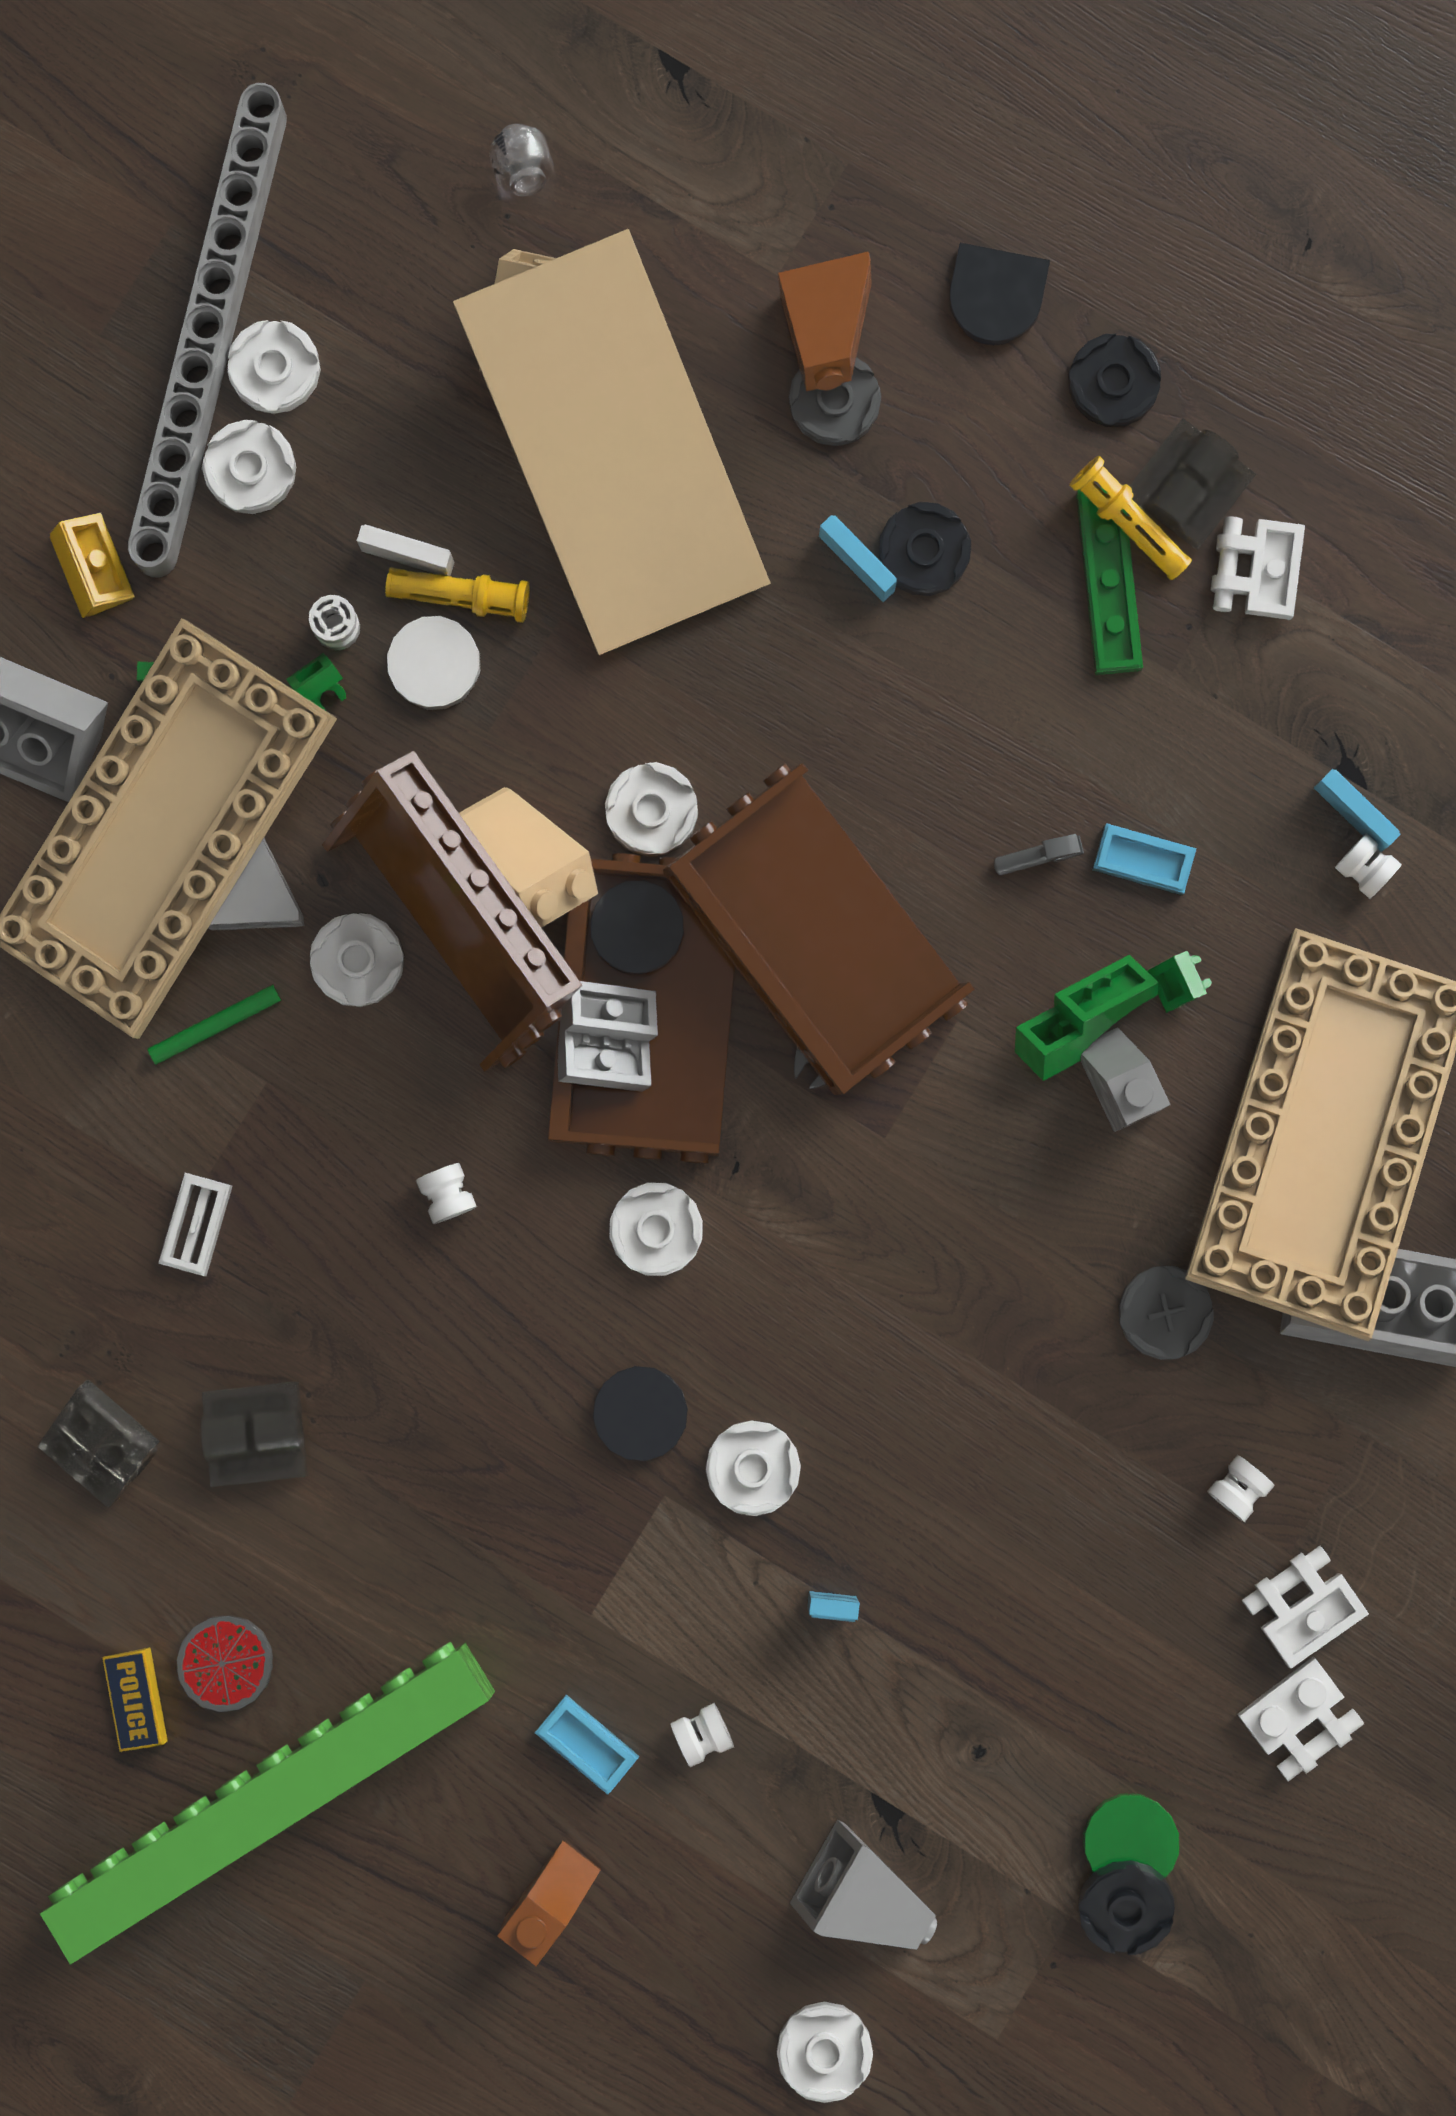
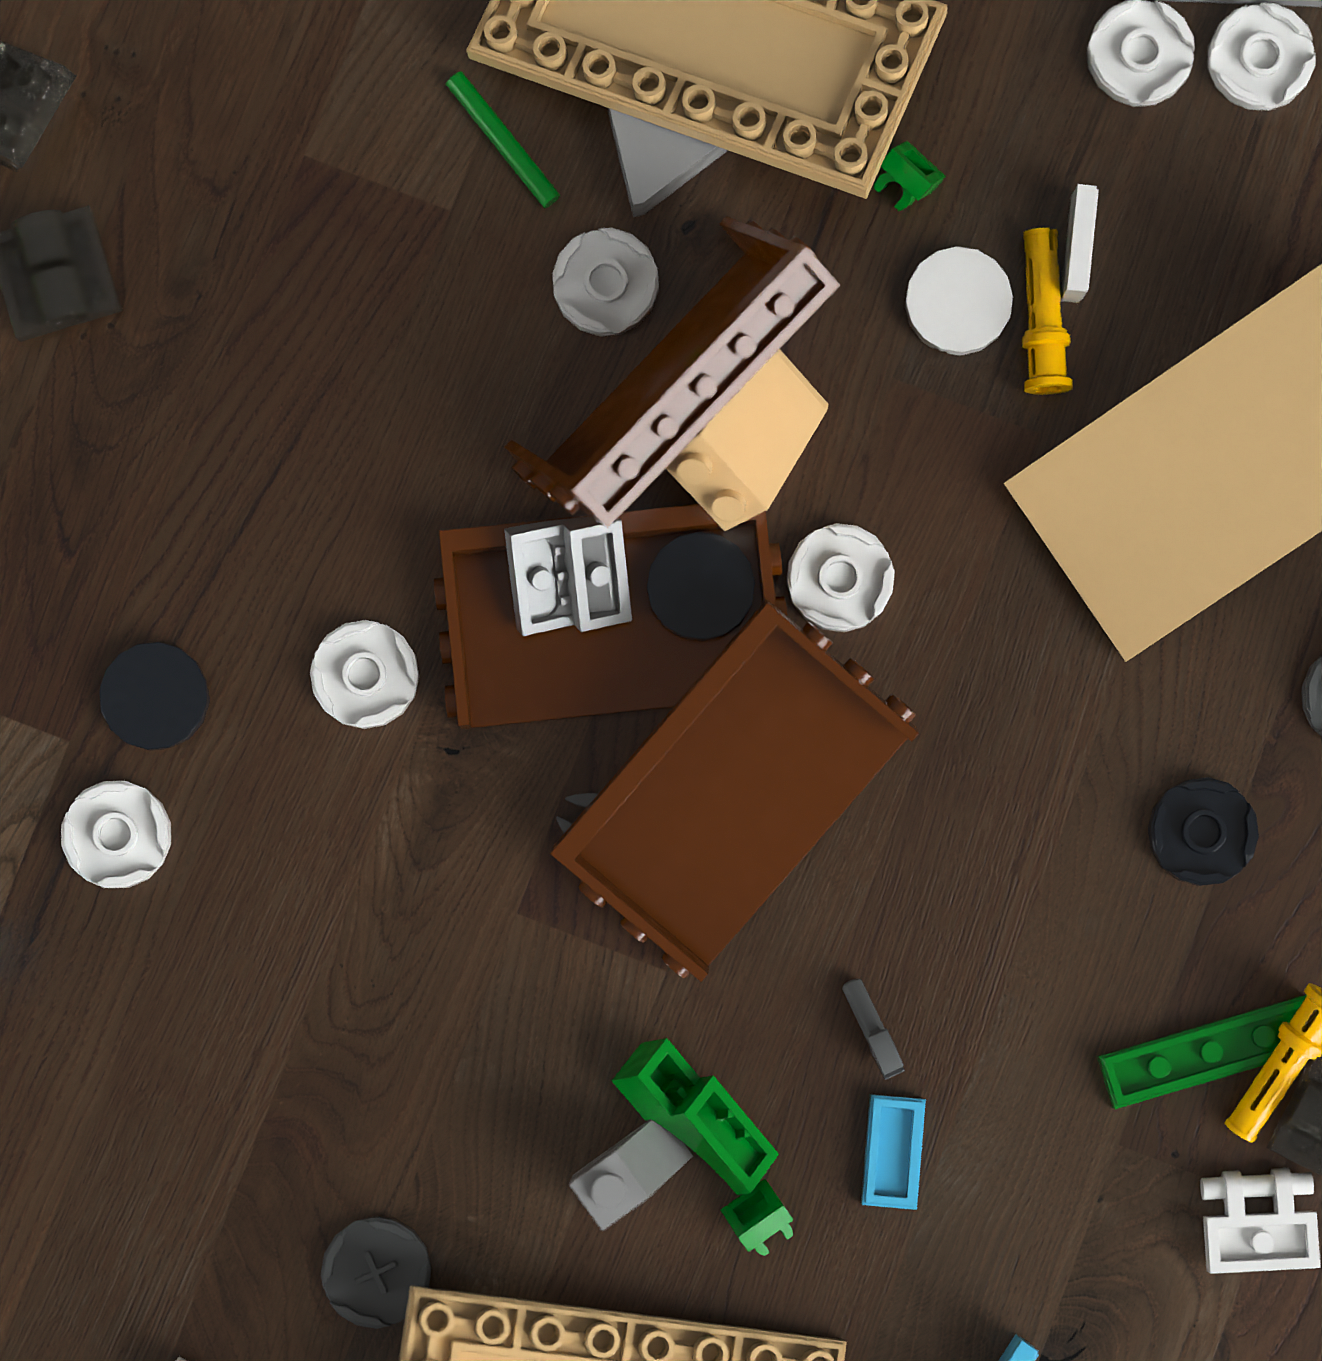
camera: 75 degrees right, 0 degrees up
(213, 1229) = (232, 180): white tile -> none
(339, 629) = (978, 191): white wheel -> none
(445, 1191) = (359, 431): white wheel -> none
(858, 557) = (1176, 756): medium azure tile -> none

